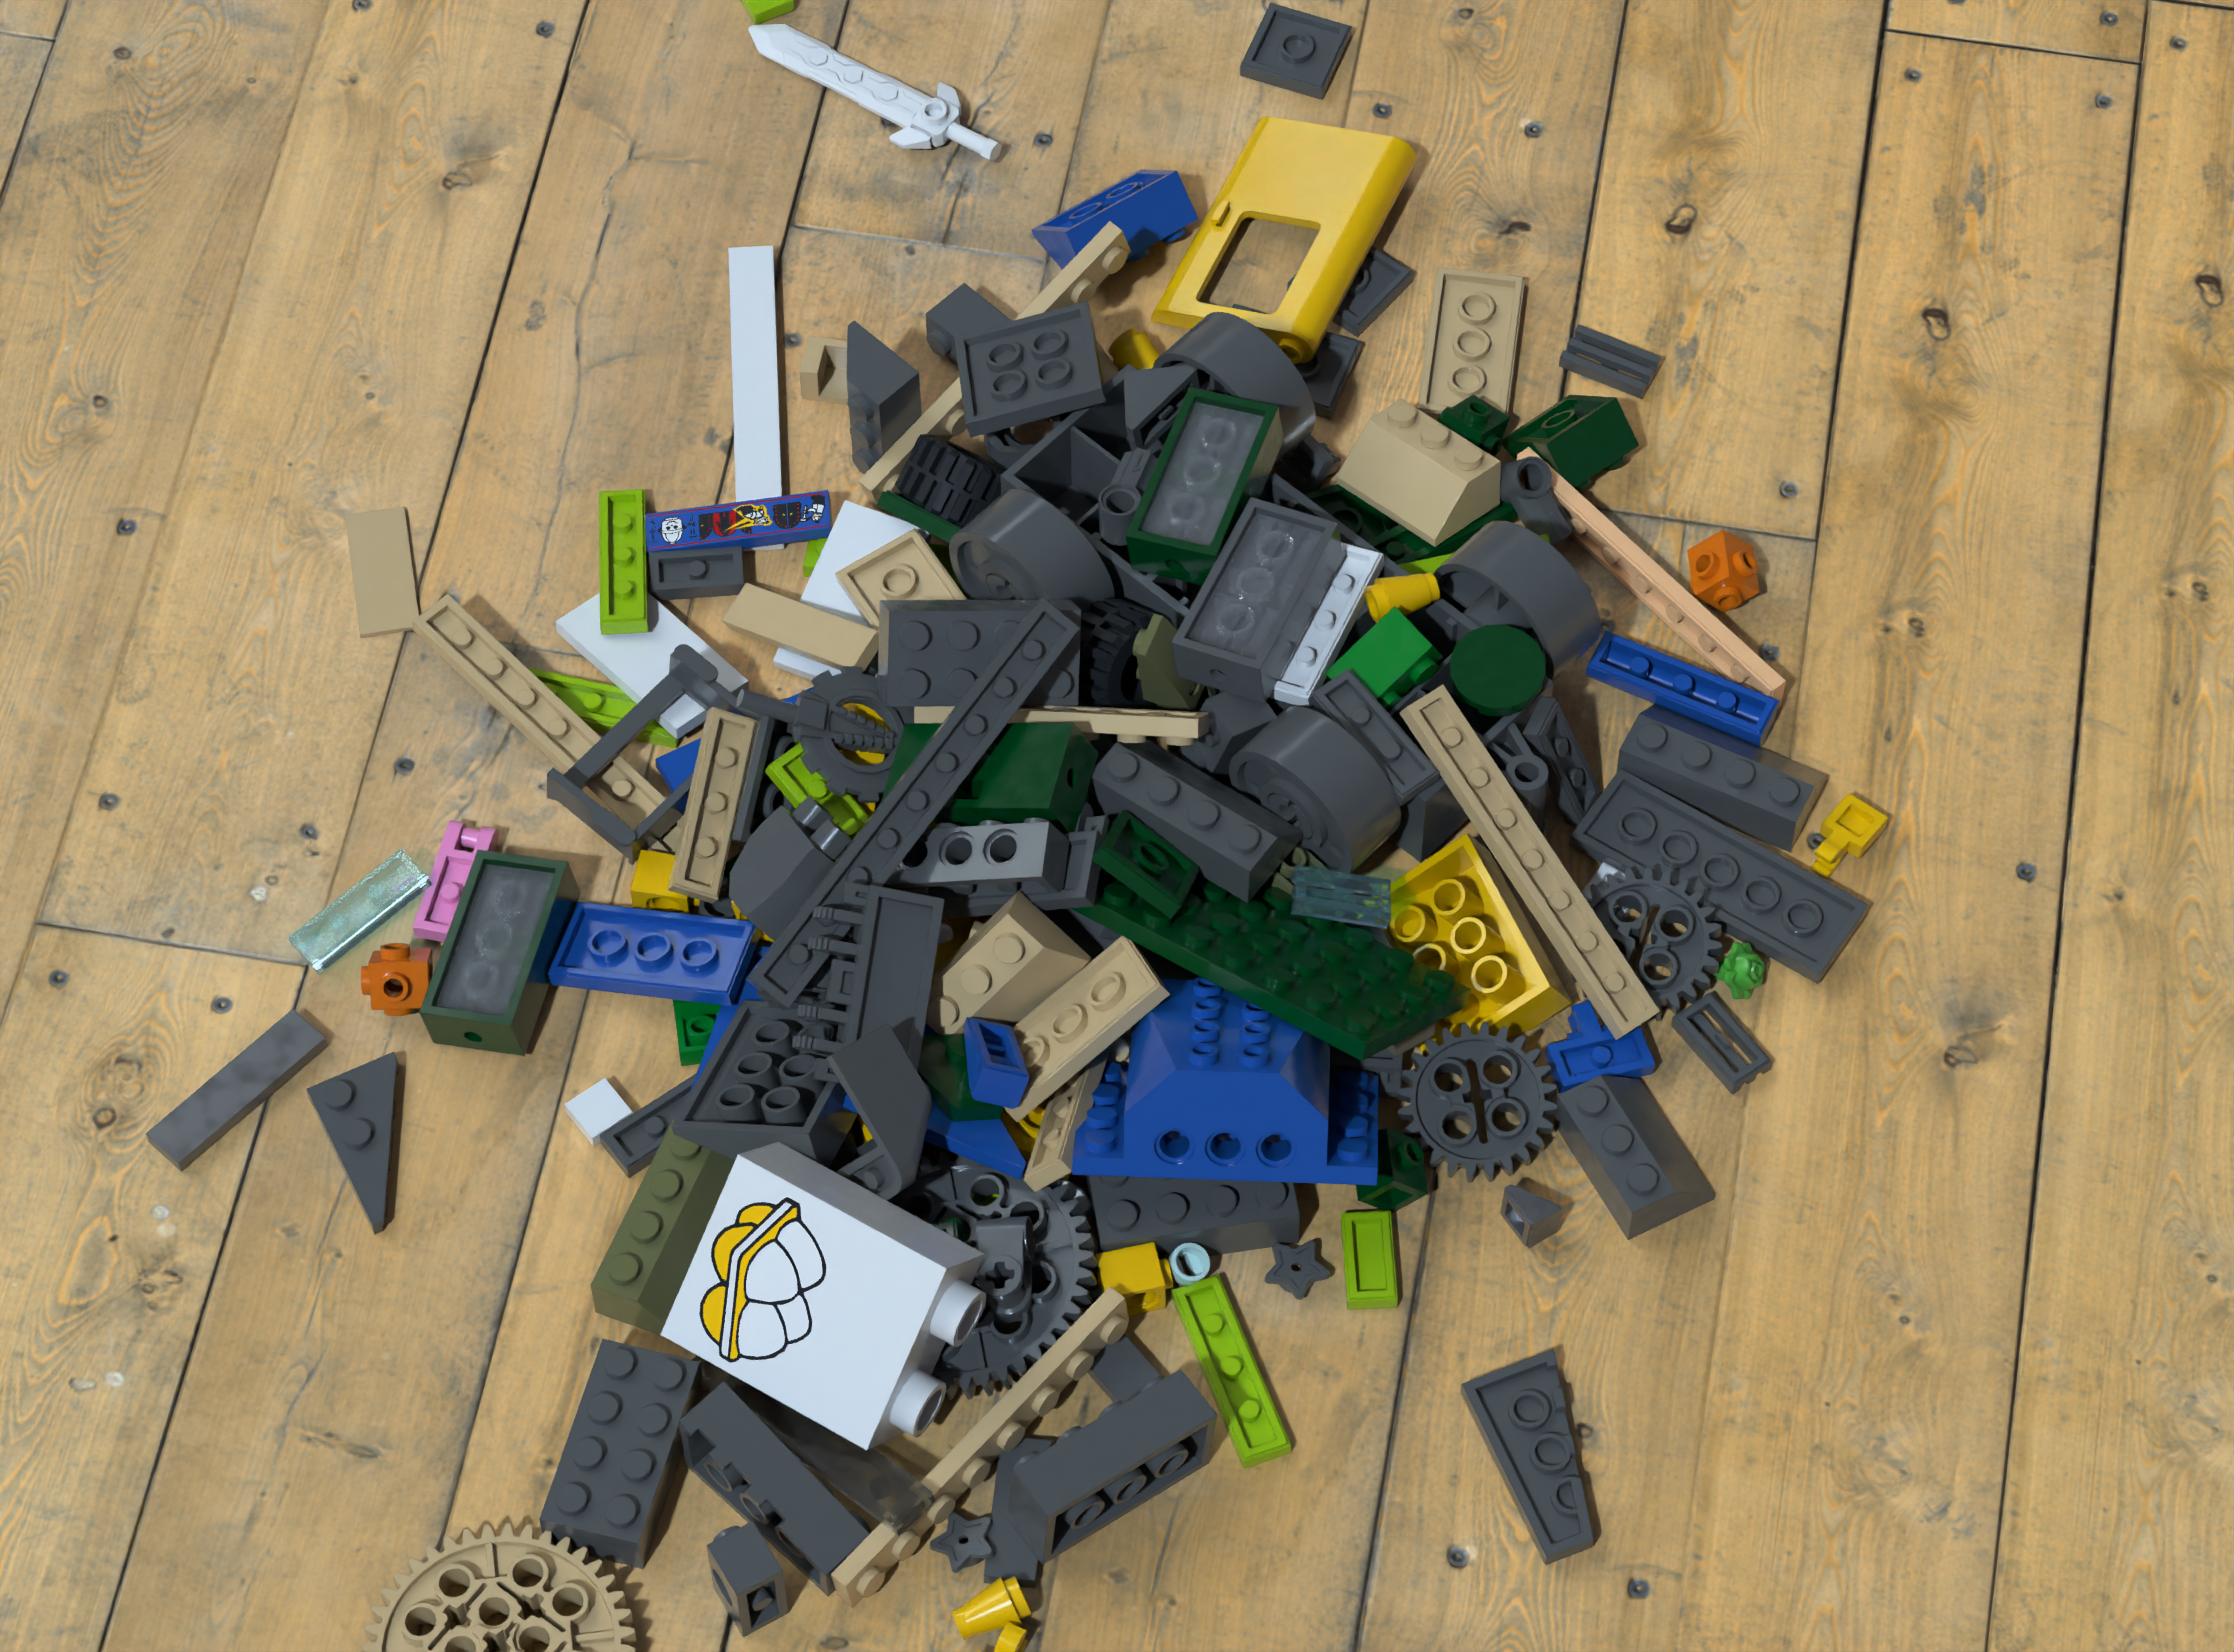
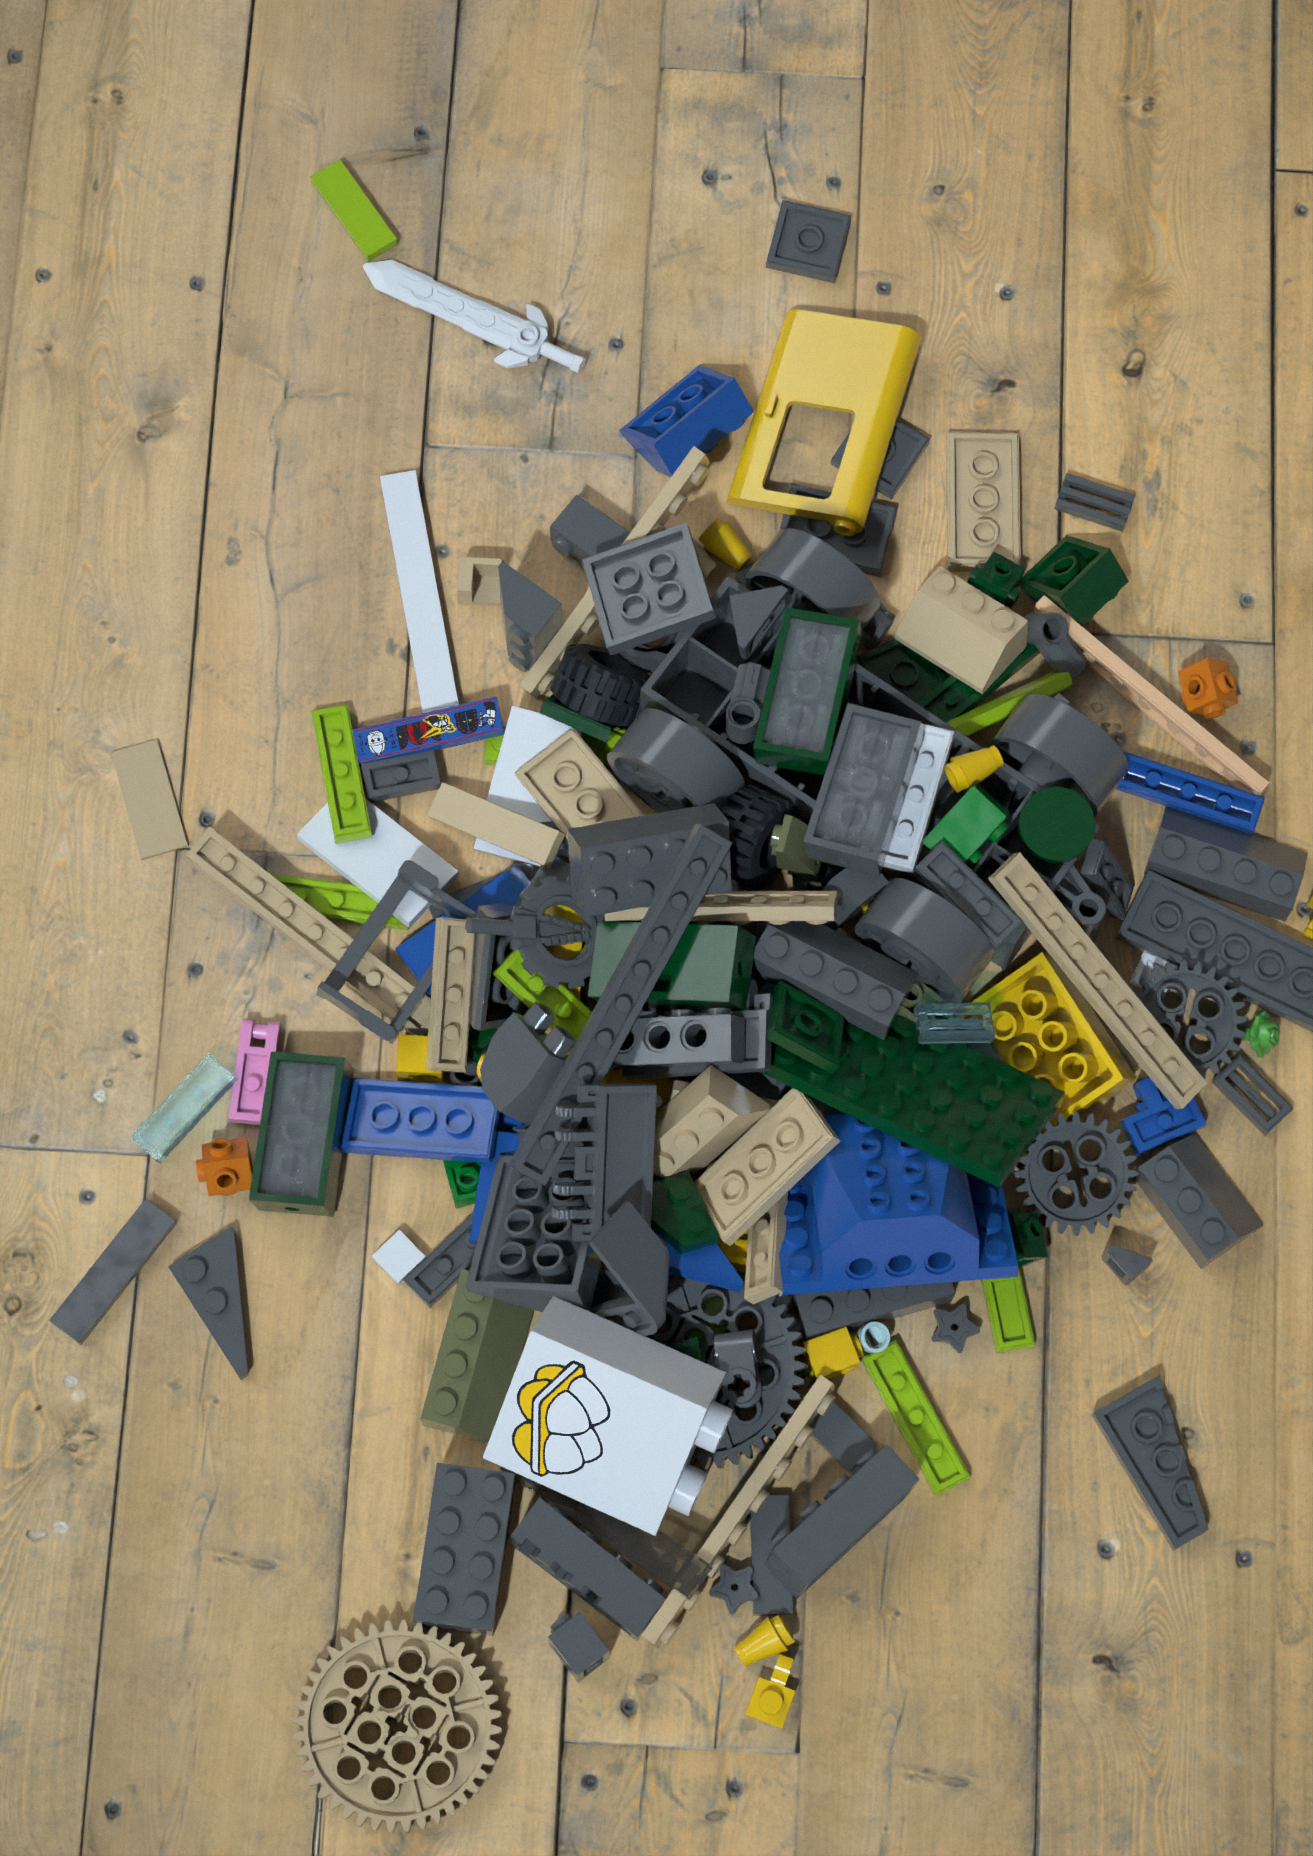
camera: 10 degrees left, 15 degrees up
(994, 1063) = (709, 1205): blue slope -> none

